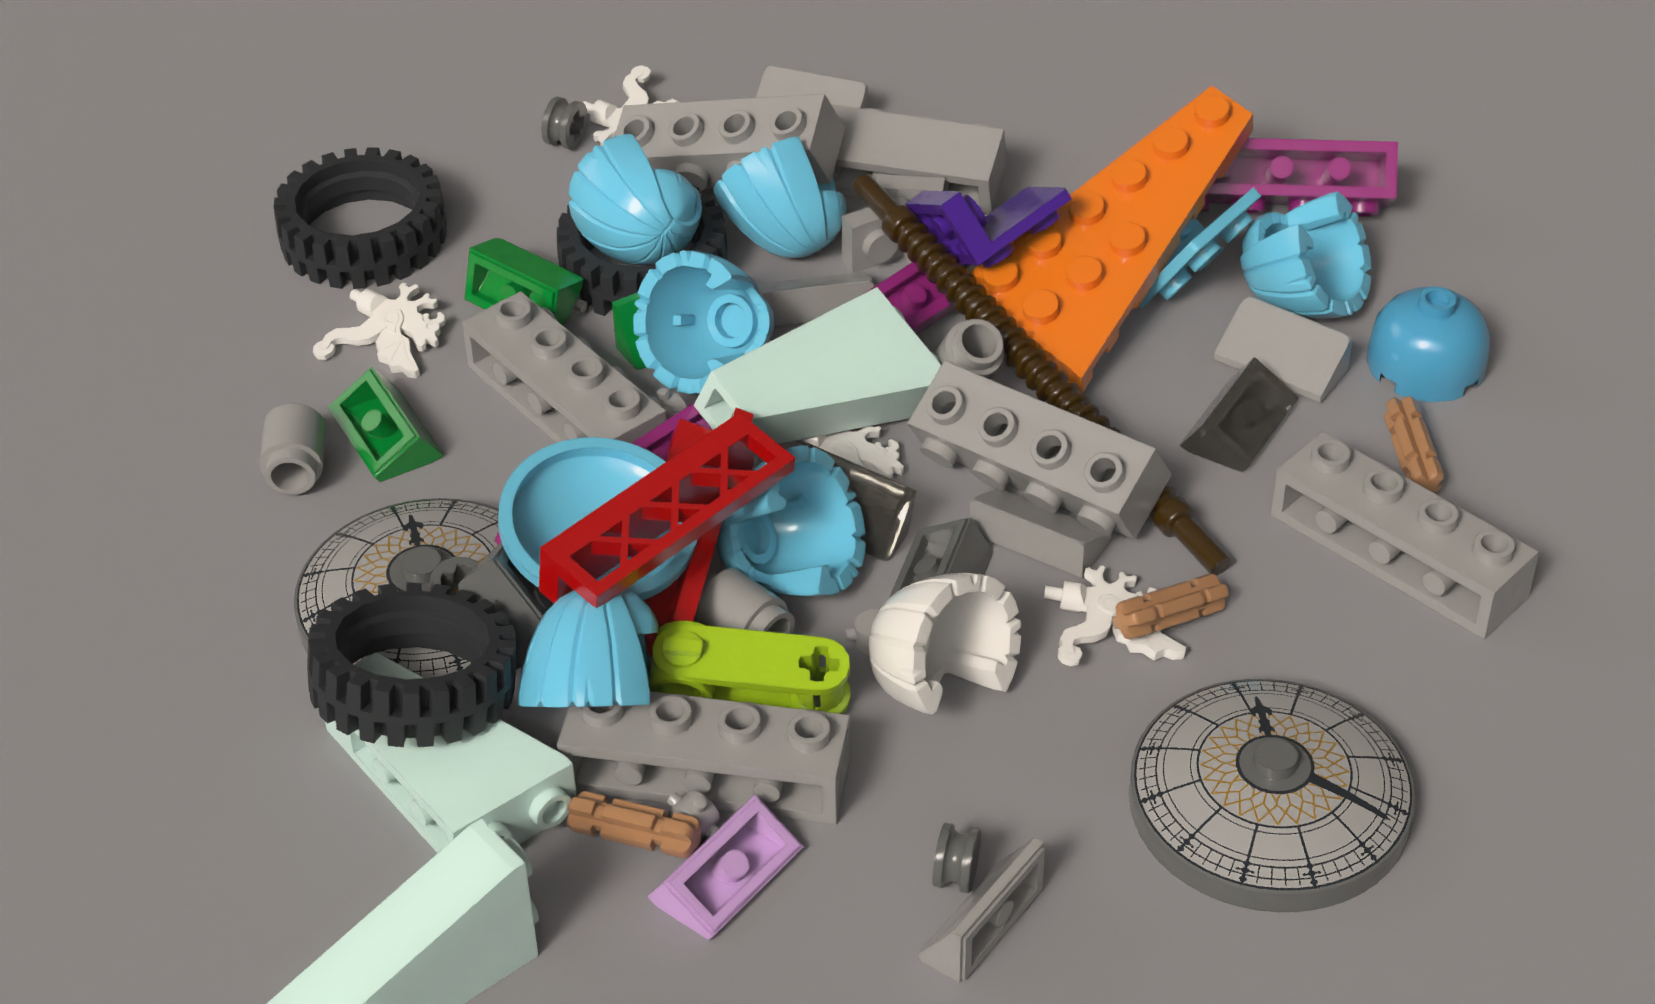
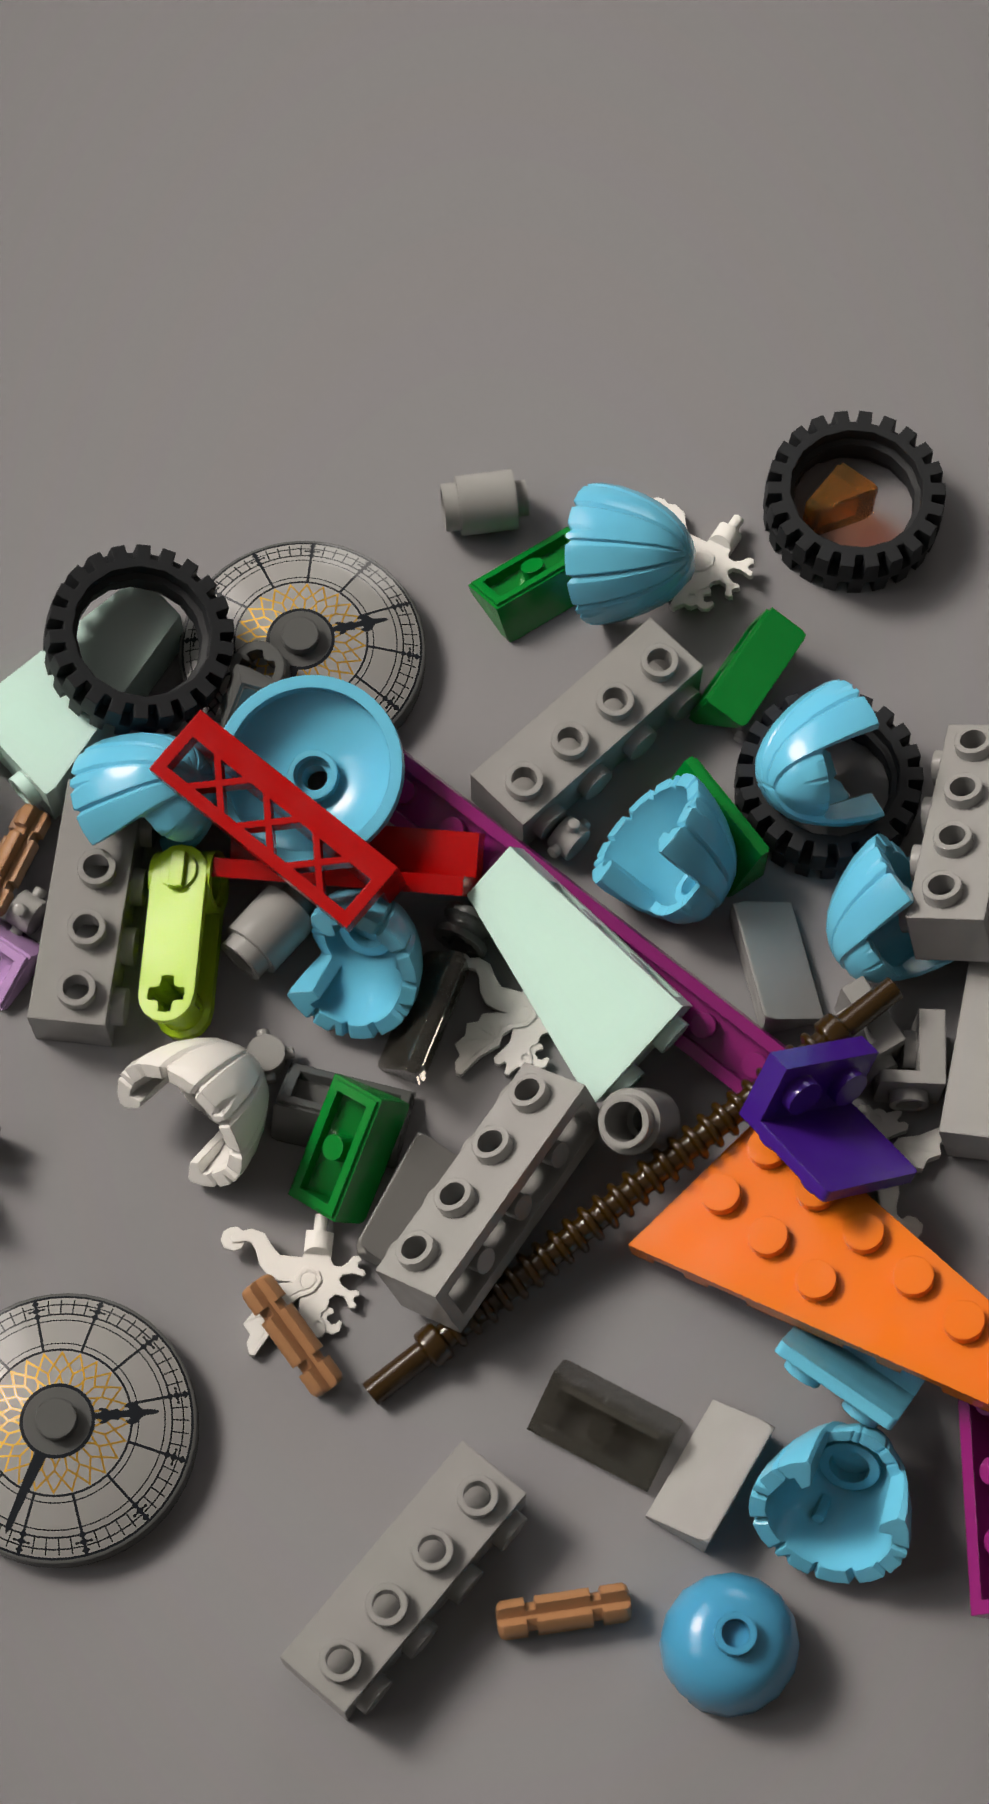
camera: 85 degrees right, 25 degrees up
(353, 211) = (840, 500): none -> clear orange slope
(389, 311) = (624, 554): none -> medium azure hair
(976, 543) = (348, 1150): none -> green slope

